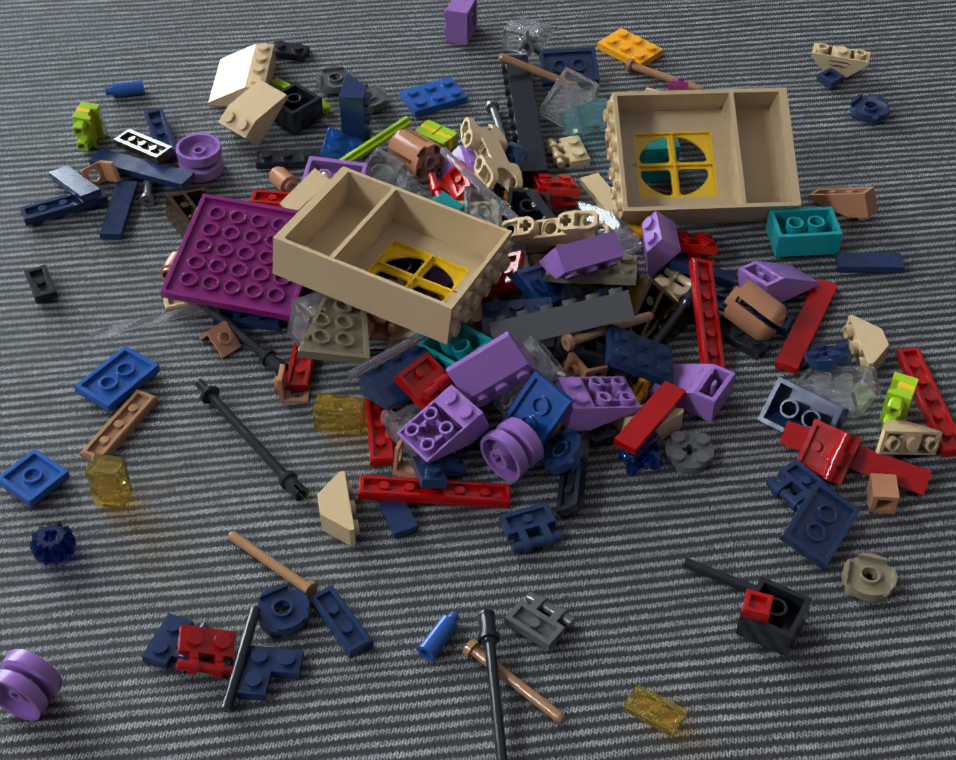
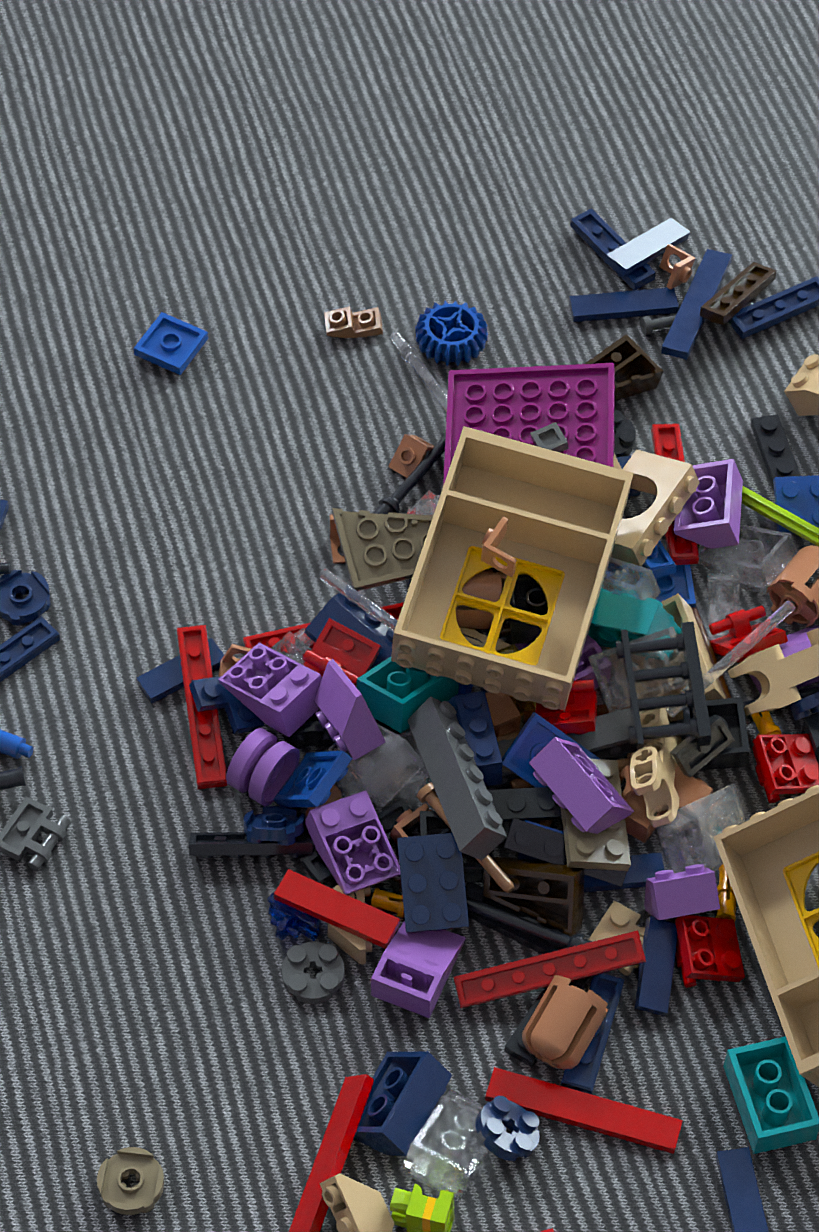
camera: 80 degrees right, 10 degrees up
(40, 284) = (467, 266): black plate -> none
(52, 543) = (82, 383): clear blue gear -> none
(65, 358) = (353, 325): none -> medium nougat slope
(88, 125) = (758, 226): lime hips -> none
(106, 300) = (451, 333): none -> blue gear
(108, 481) = (160, 403): clear yellow brick -> none
(117, 378) = (328, 375): blue plate -> none
(120, 425) = (260, 398): medium nougat tile -> none
(200, 155) = (732, 355): medium lavender wheel -> none
(262, 236) = (550, 438): none -> dark grey plate
(282, 179) = (721, 449): nougat brick -> none
(287, 479) = (201, 564): black bar -> none
(308, 587) = (52, 612): medium nougat bar -> none
(337, 510) = (160, 616): tan slope -> none
(339, 413) = (304, 590): clear yellow brick -> none
(393, 236) = (489, 552): none -> nougat bracket
(515, 187) = (688, 670): none -> black fence
(529, 521) = (171, 805): dark blue plate -> none
(718, 575) = (111, 1033): black bar -> none
(757, 605) = (41, 1033): red tile -> none
(777, 279) = (650, 1059): medium lavender slope -> none
(785, 620) = (48, 1066): black brick -> none
(798, 478) = (274, 1106): dark blue plate -> none
(820, 524) = (199, 1118): dark blue plate -> none
(829, 451) = (319, 1127): red plate -> none
(866, 342) = (545, 1185): tan slope -> none
(882, 493) = (269, 1198): nougat brick -> none

